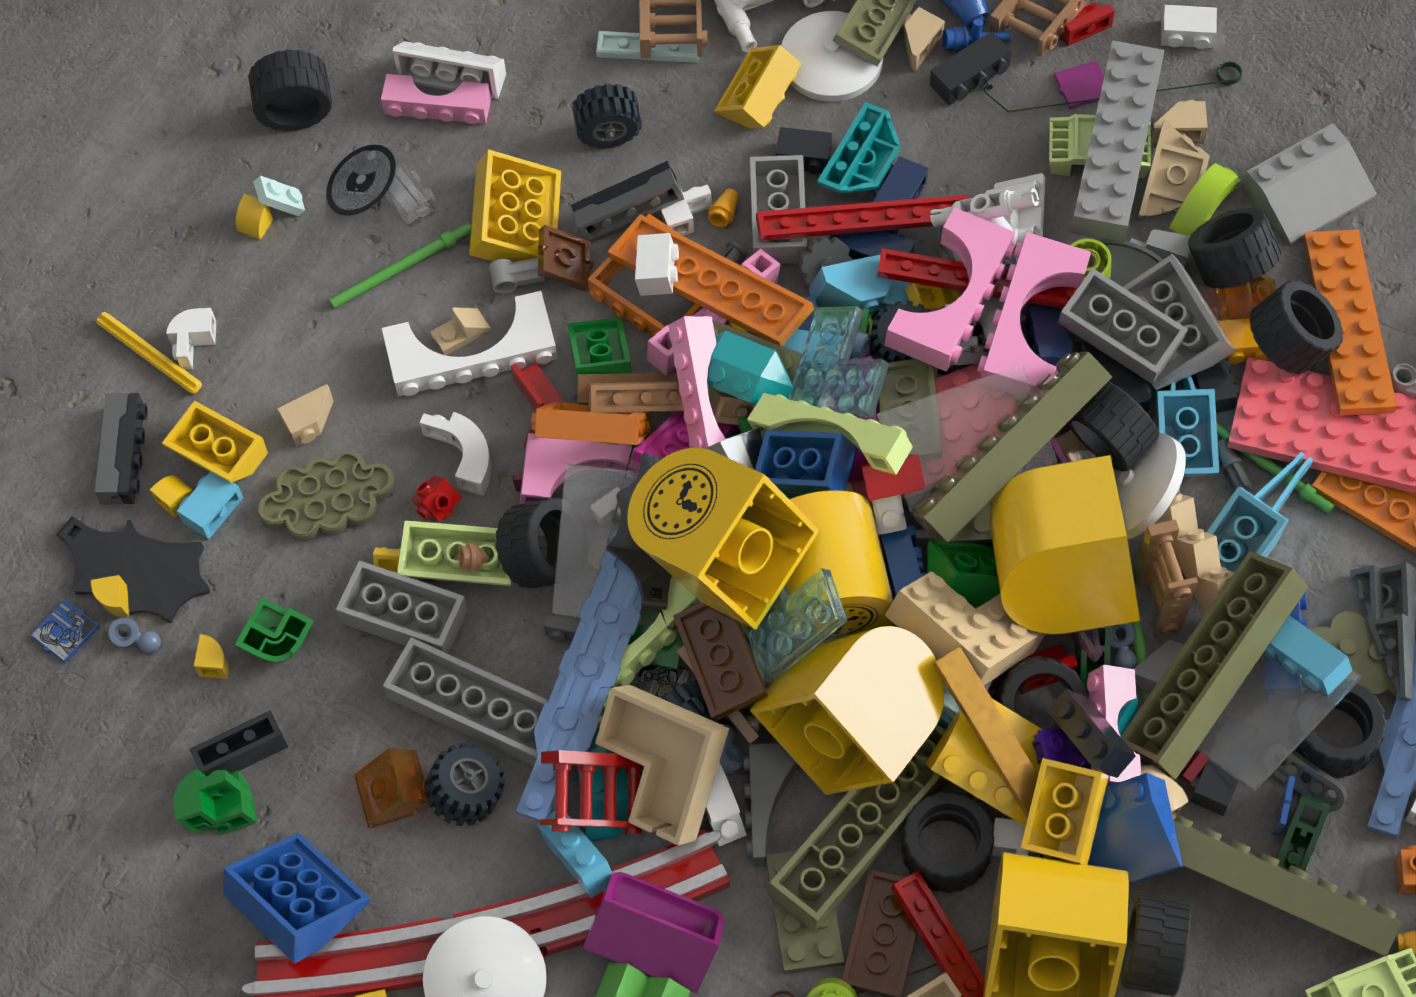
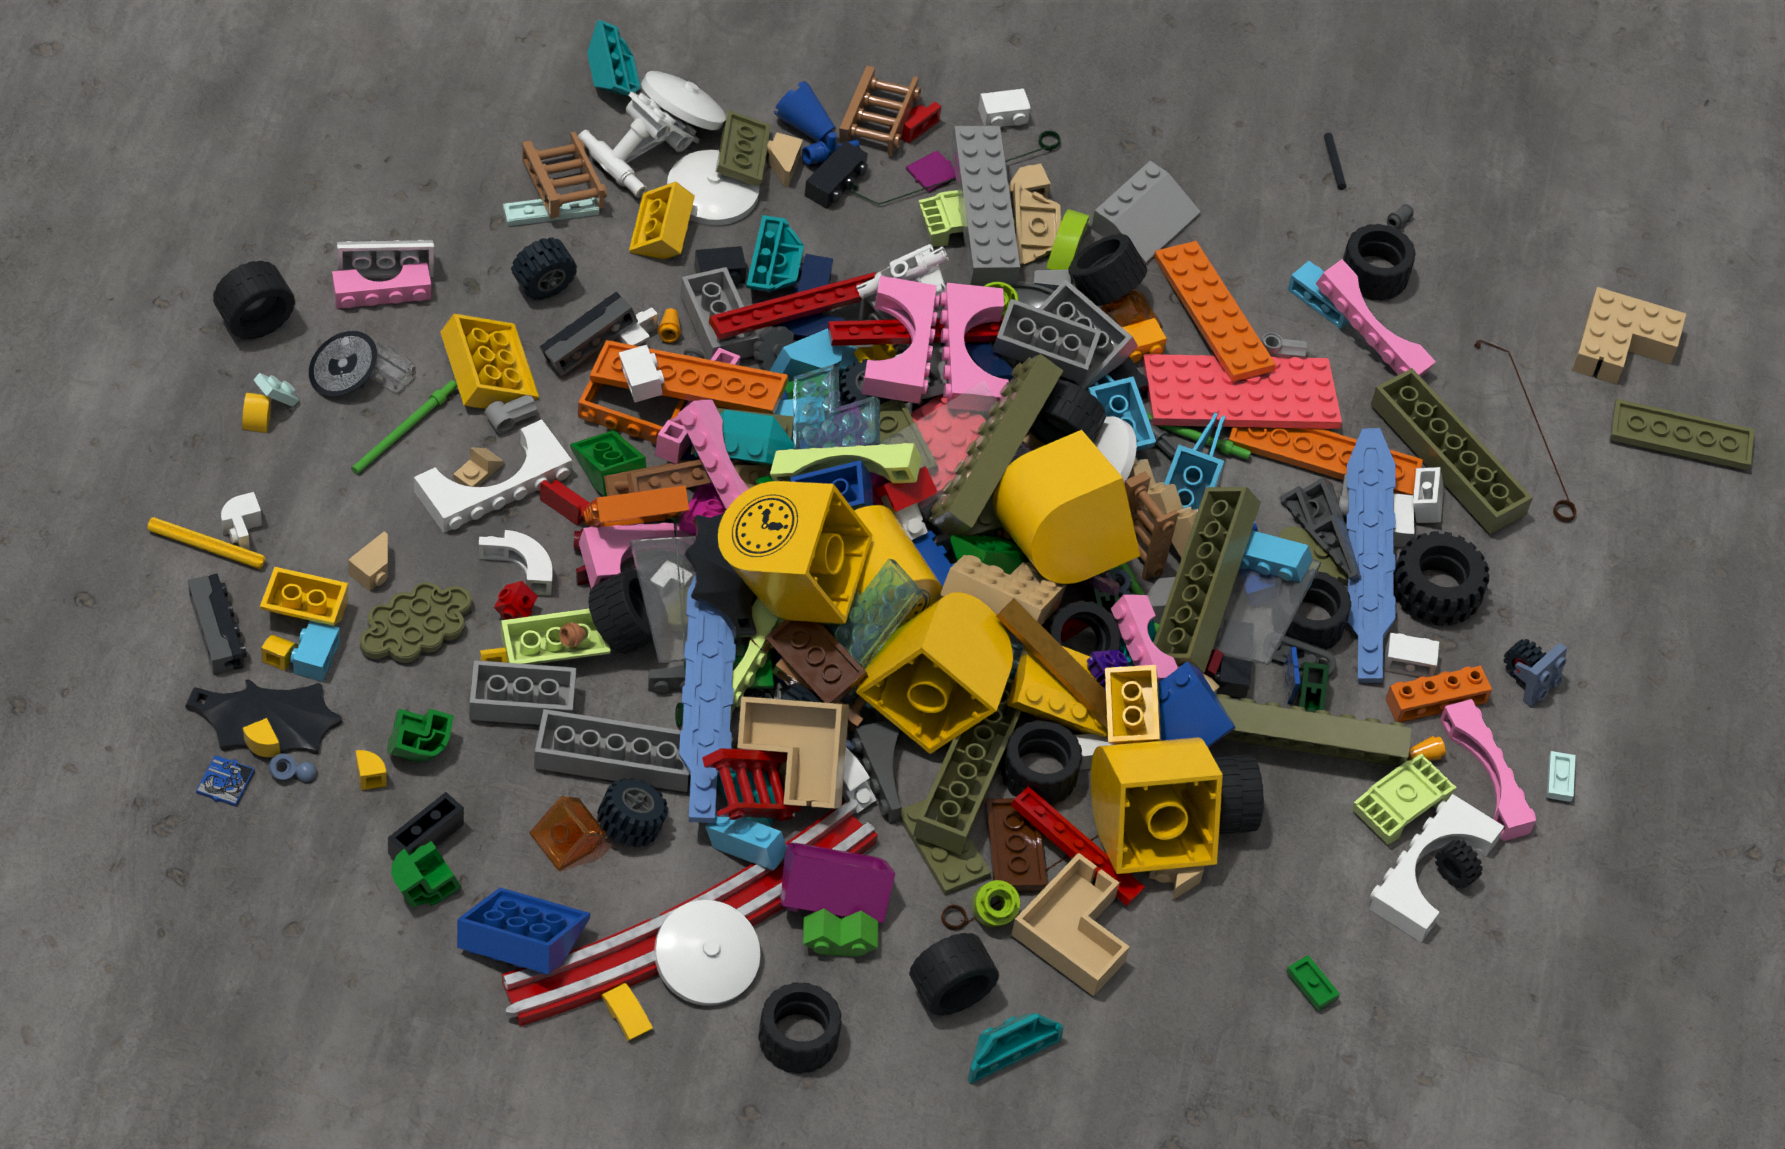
camera: 30 degrees left, 10 degrees down
(564, 258) = (550, 390): reddish brown plate -> none
(1091, 733) = (1134, 643): black brick -> none
(1296, 327) = (1178, 319): black tyre -> none

